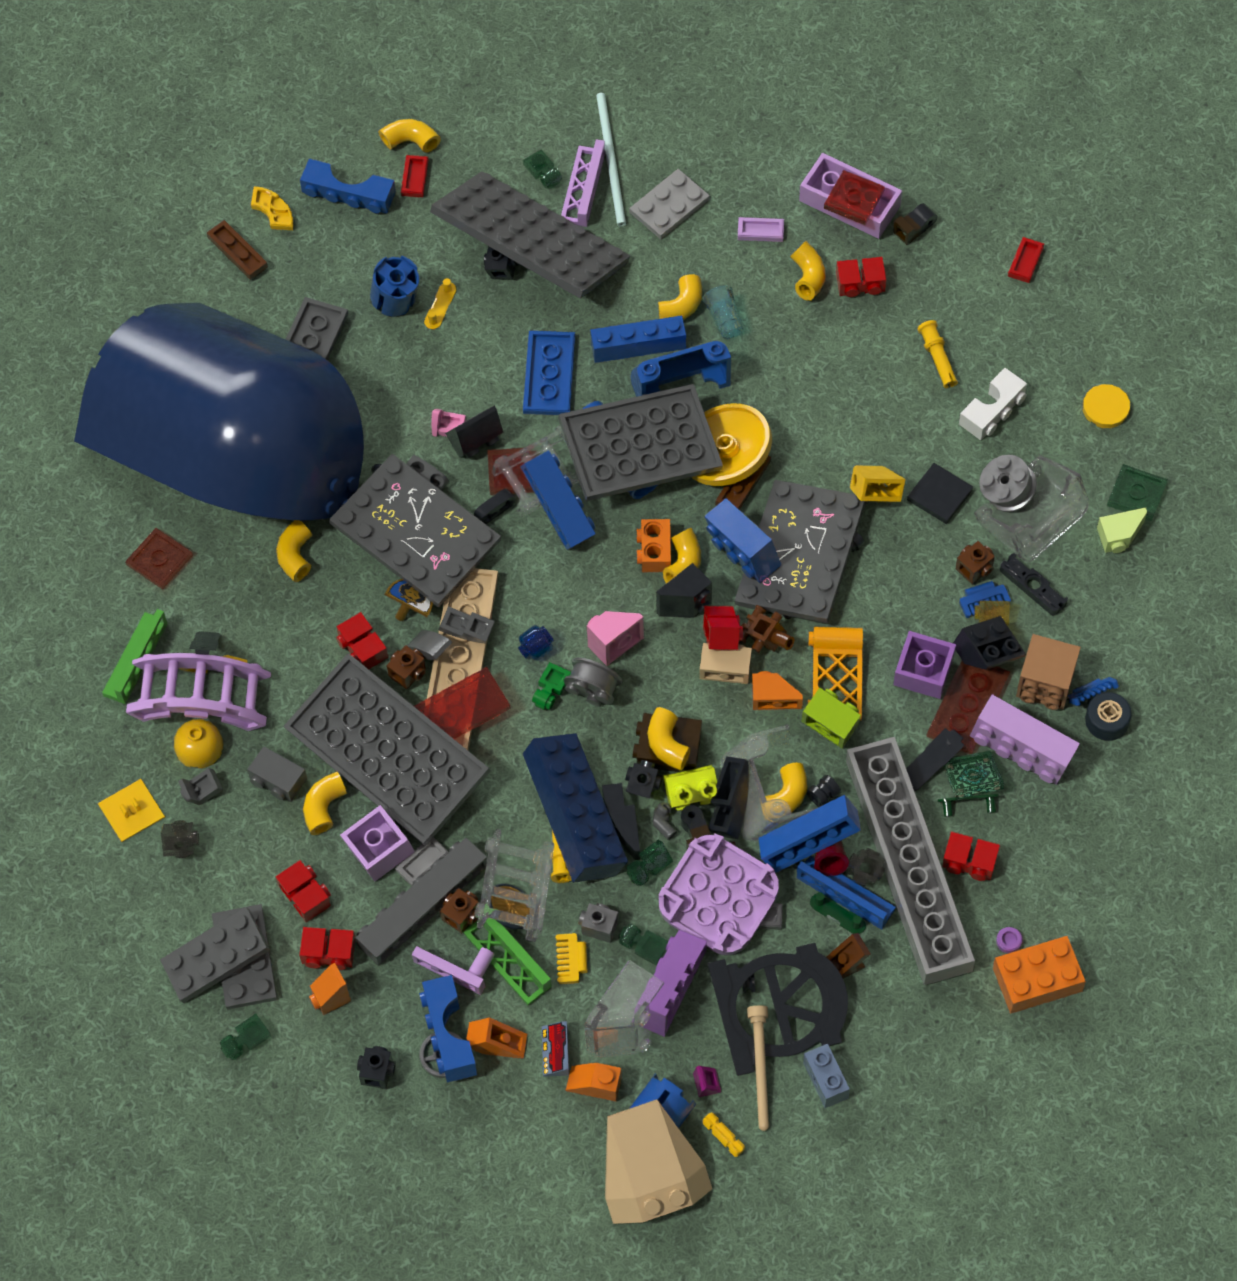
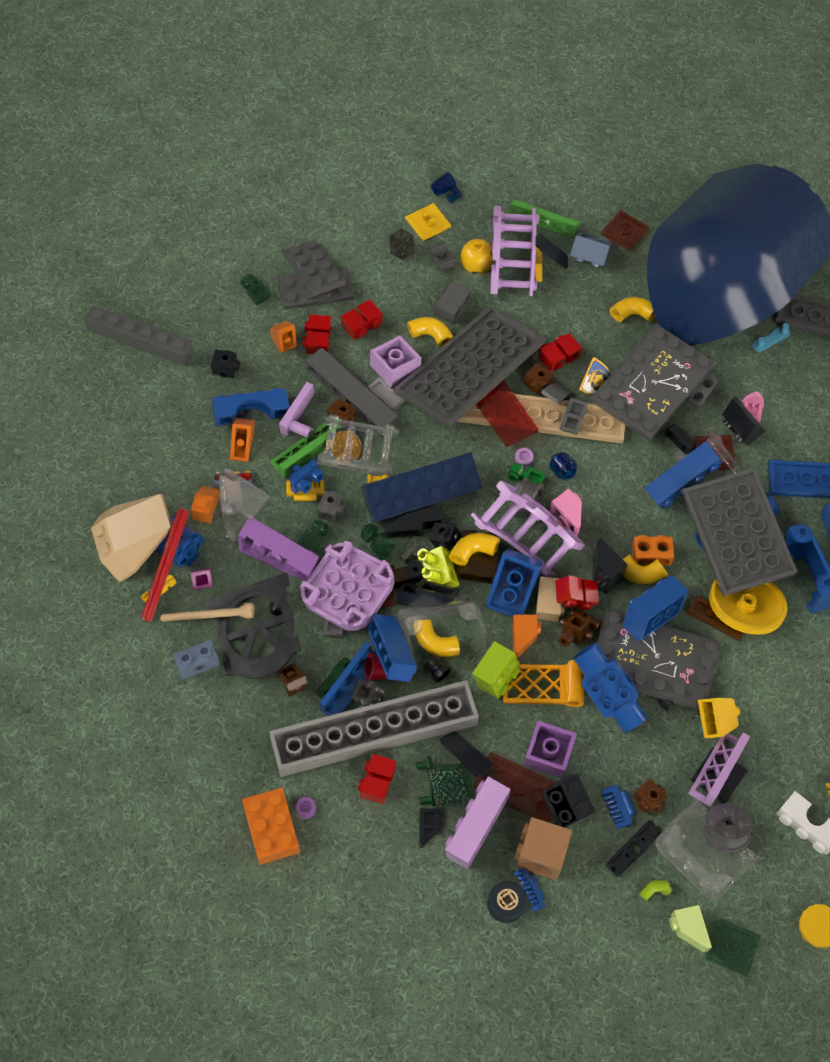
camera: 85 degrees right, 0 degrees up
(71, 787) = (444, 184): none -> clear blue piece
(192, 597) = (591, 249): none -> sand blue slope
(325, 1190) = (139, 335): none -> dark grey brick
(519, 691) = (524, 456): none -> lavender tile
(568, 958) = (303, 475): none -> blue hips
(621, 664) = (538, 512): none -> lavender fence
(702, 1114) = (165, 564): none -> red axle
(710, 697) = (514, 583): none -> blue slope
(848, 593) = (610, 687): none -> blue brick
(943, 482) = (725, 771): none -> lavender fence
(990, 609) = (605, 809): clear yellow bracket -> none
(1020, 802) = (429, 825): none -> black tile
(1075, 564) = (656, 886): none -> lime arm

